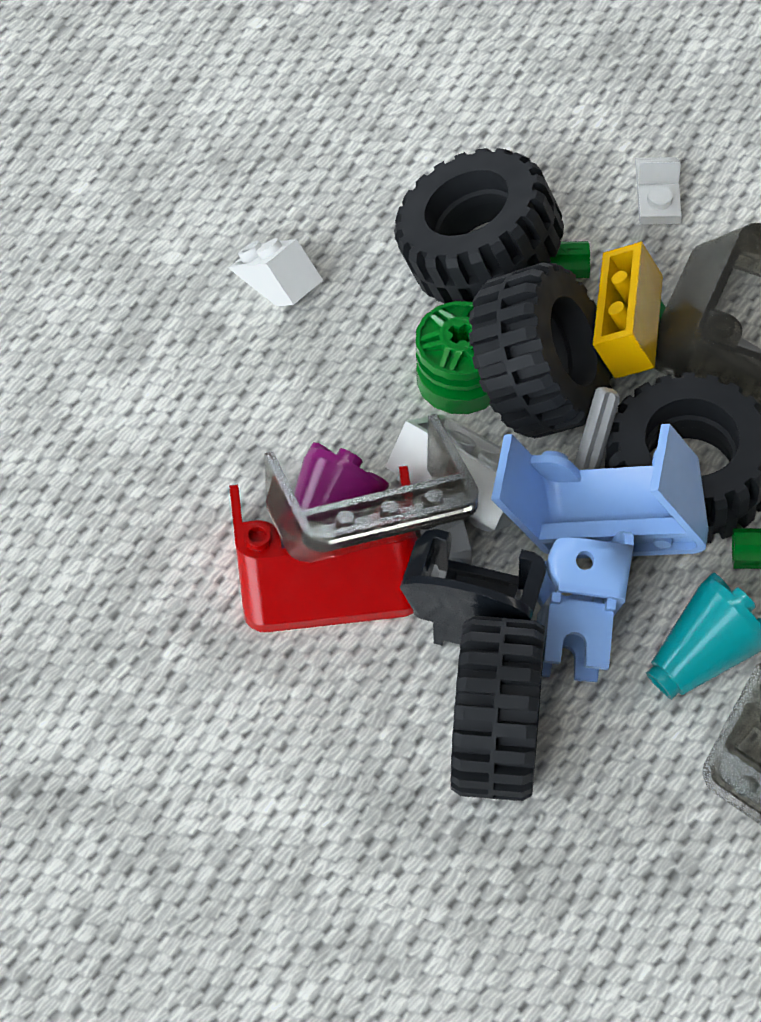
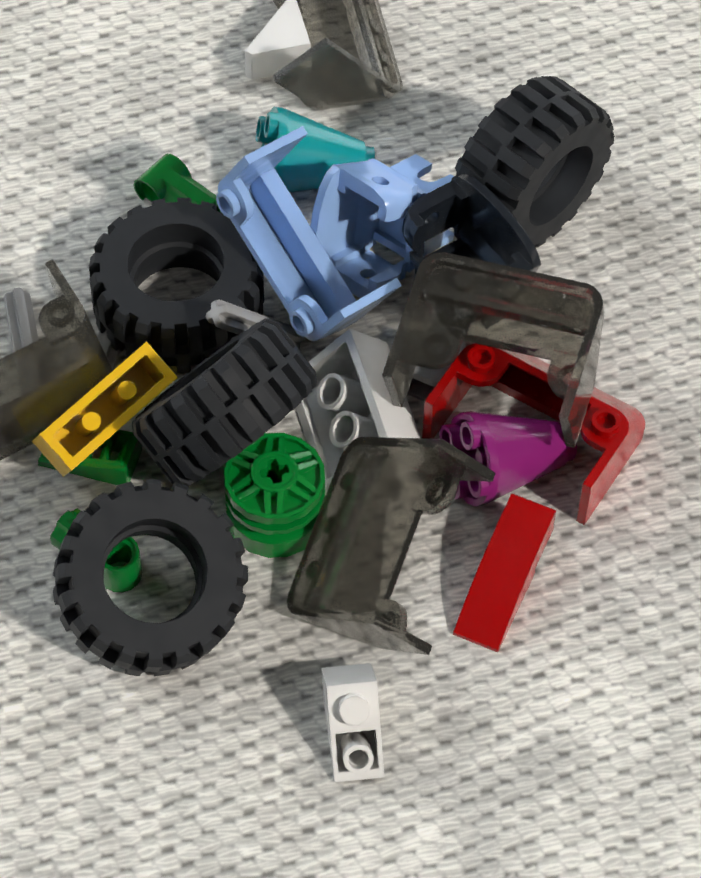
camera: 145 degrees left, 0 degrees up
(255, 431) = (505, 572): none -> red slope
(368, 366) = (367, 531): none -> clear smoke windscreen

